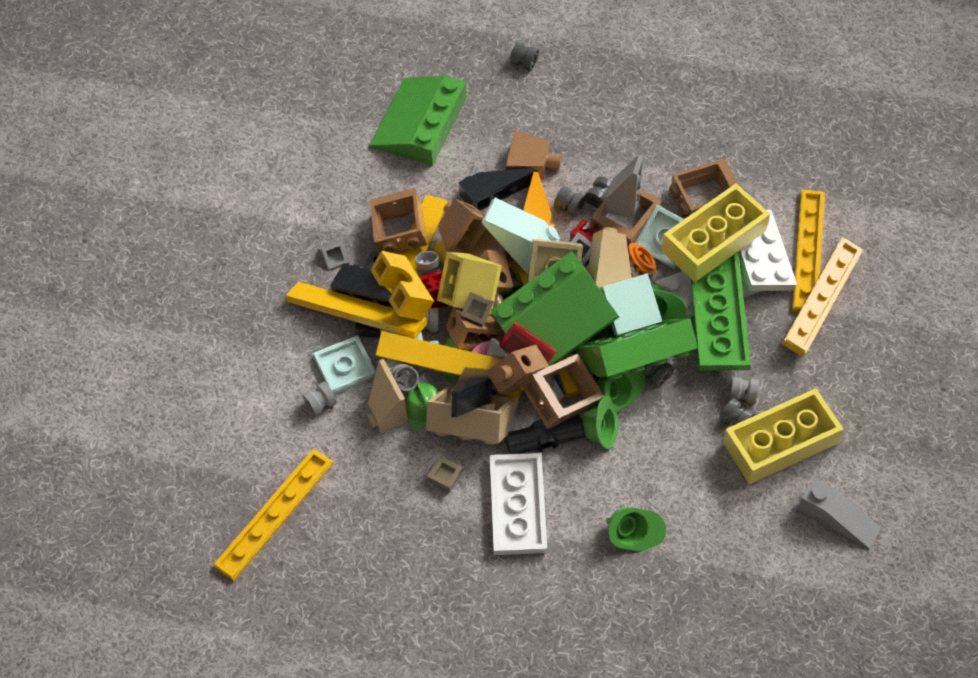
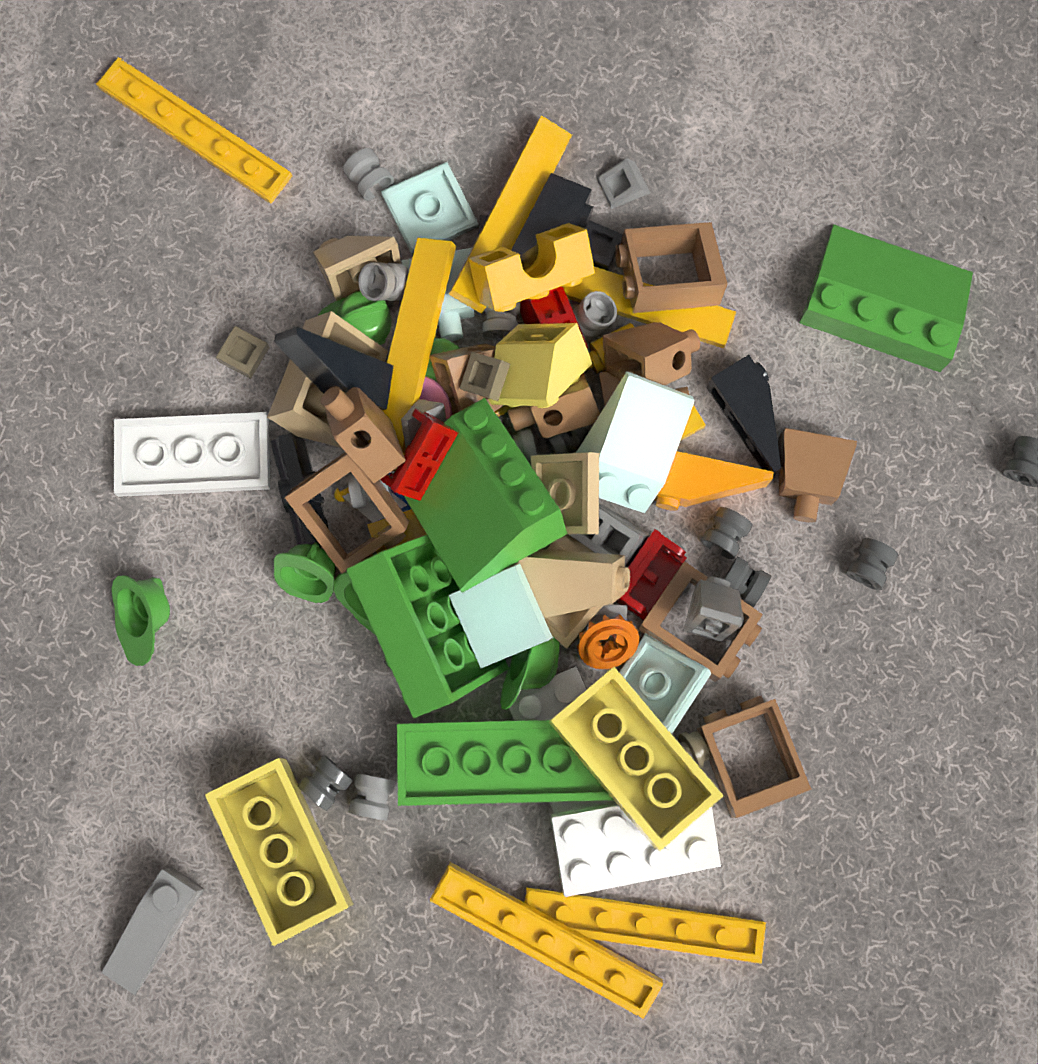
camera: 85 degrees right, 20 degrees up
(589, 131) = (872, 563): none -> dark grey wheel

